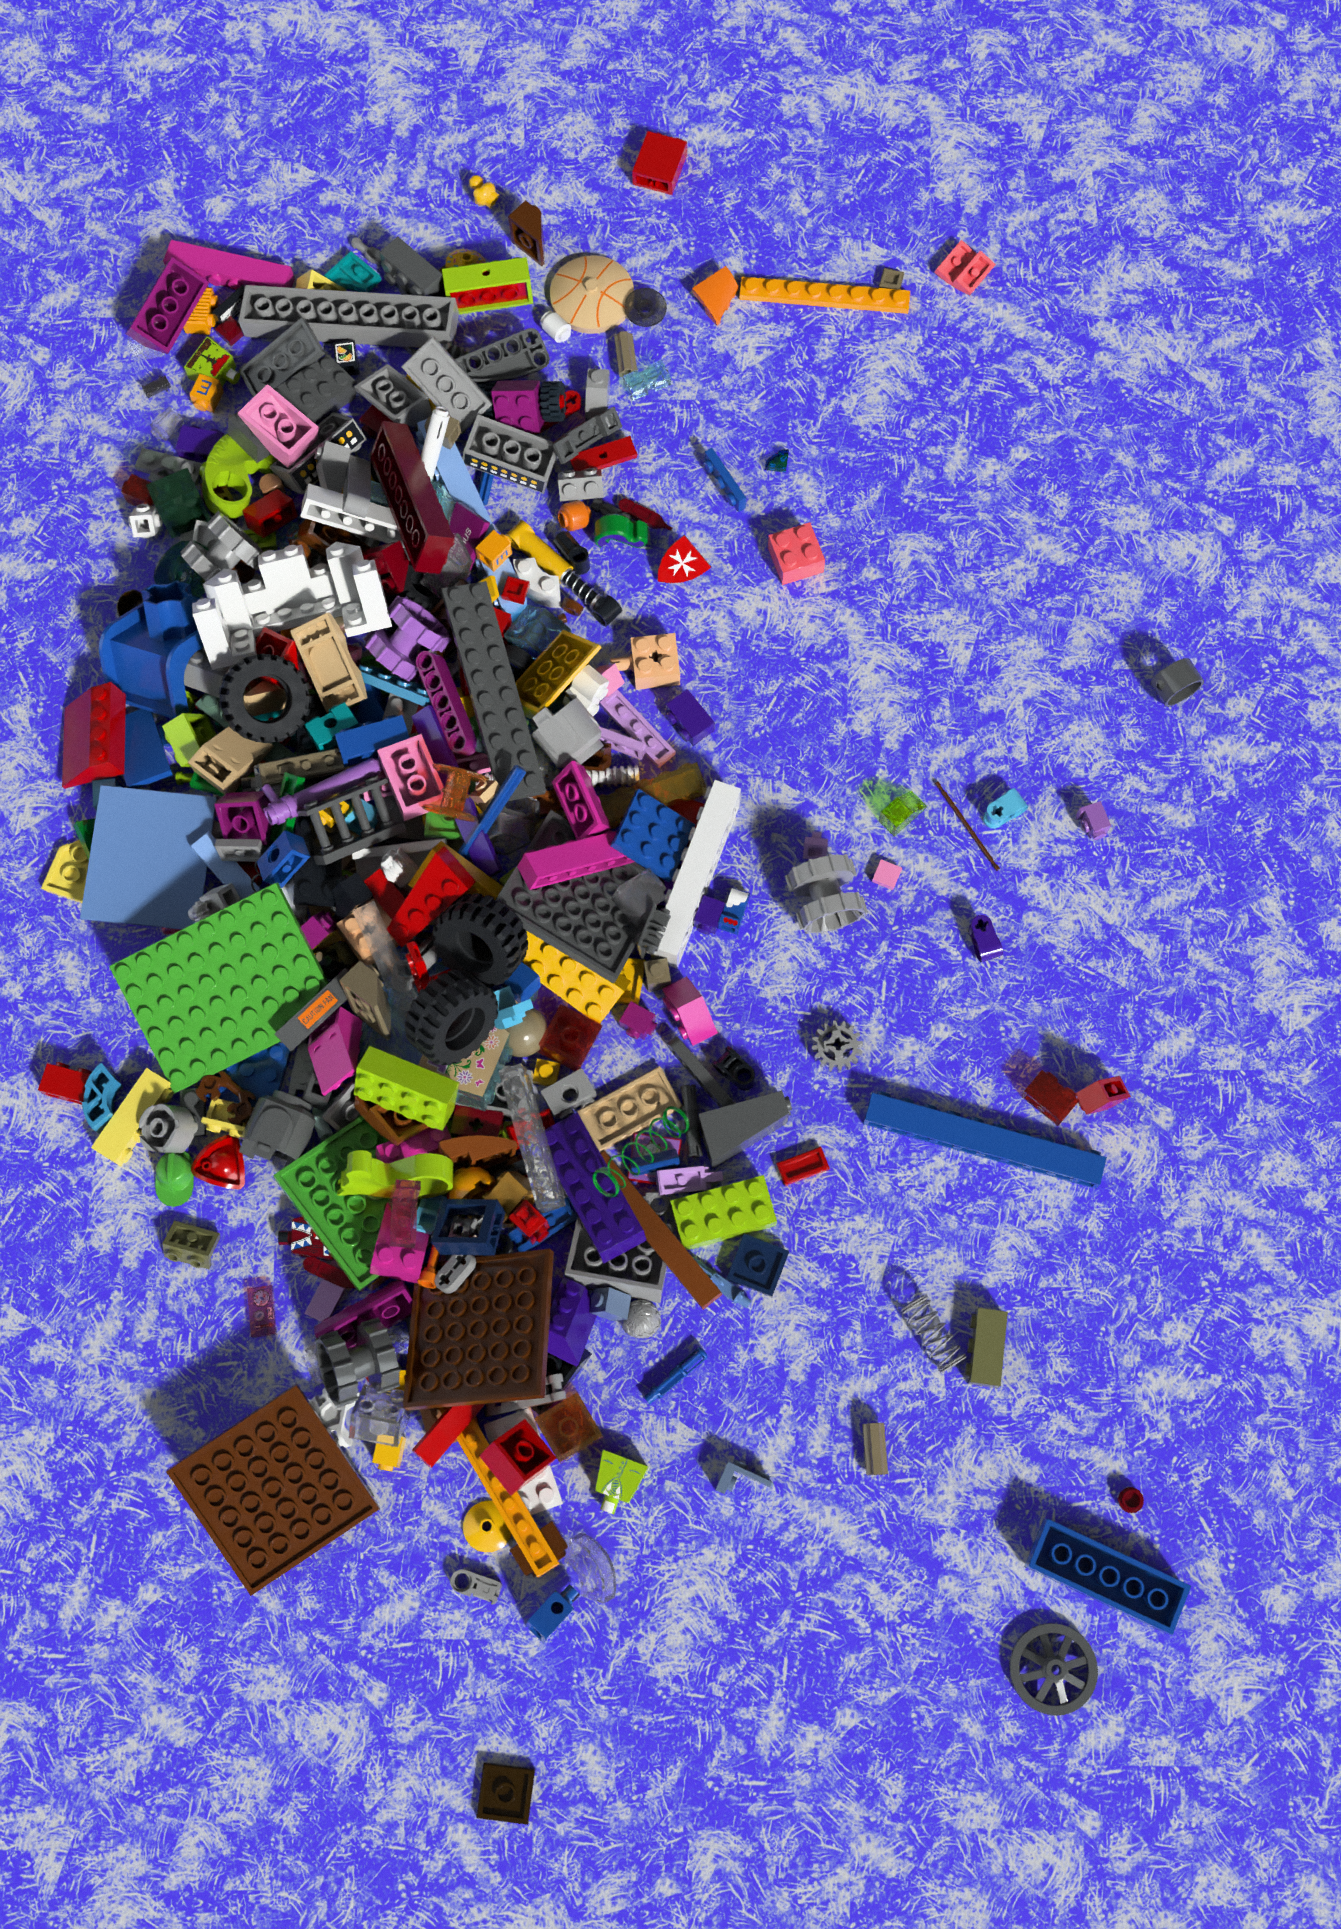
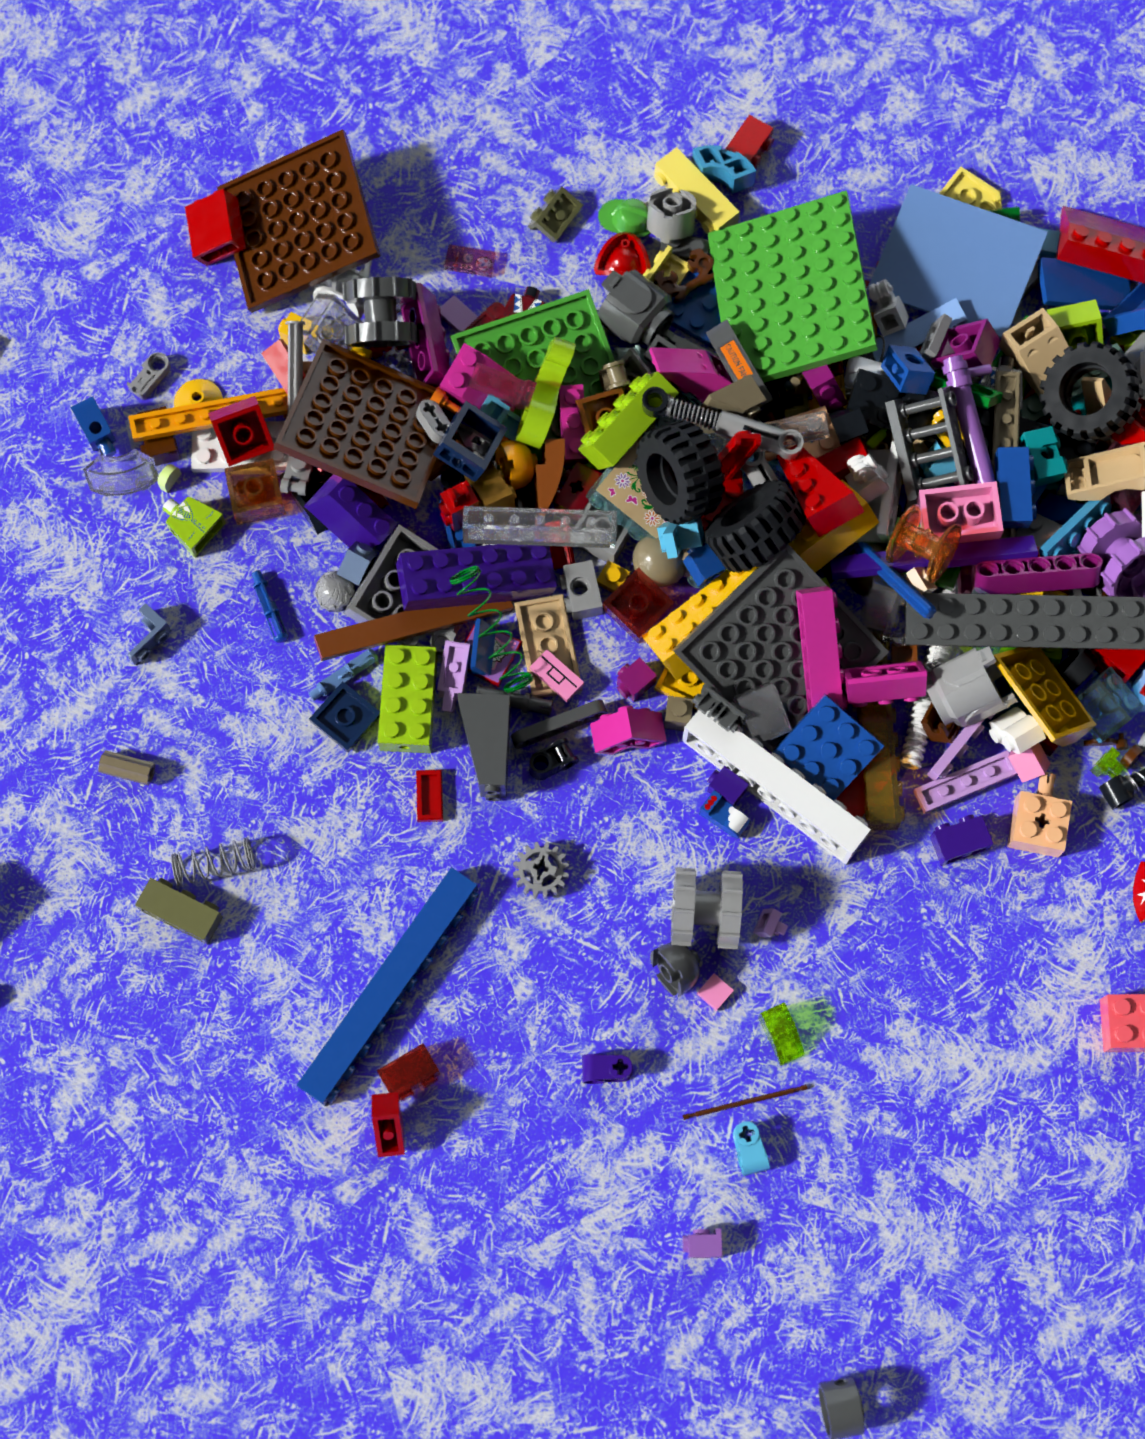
camera: 105 degrees right, 0 degrees up
(299, 1576) = (215, 227): none -> red brick
(359, 1121) = (613, 376): none -> dark tan piece
(394, 990) = (724, 424): none -> piece
(452, 1421) = (295, 359): none -> light grey axle
(578, 1522) = (168, 477): none -> yellowish green tile
(584, 623) = (1108, 764): none -> clear neon green tile
(657, 1089) = (557, 676): none -> bright pink tile
(882, 907) = (677, 967): none -> dark grey cylinder

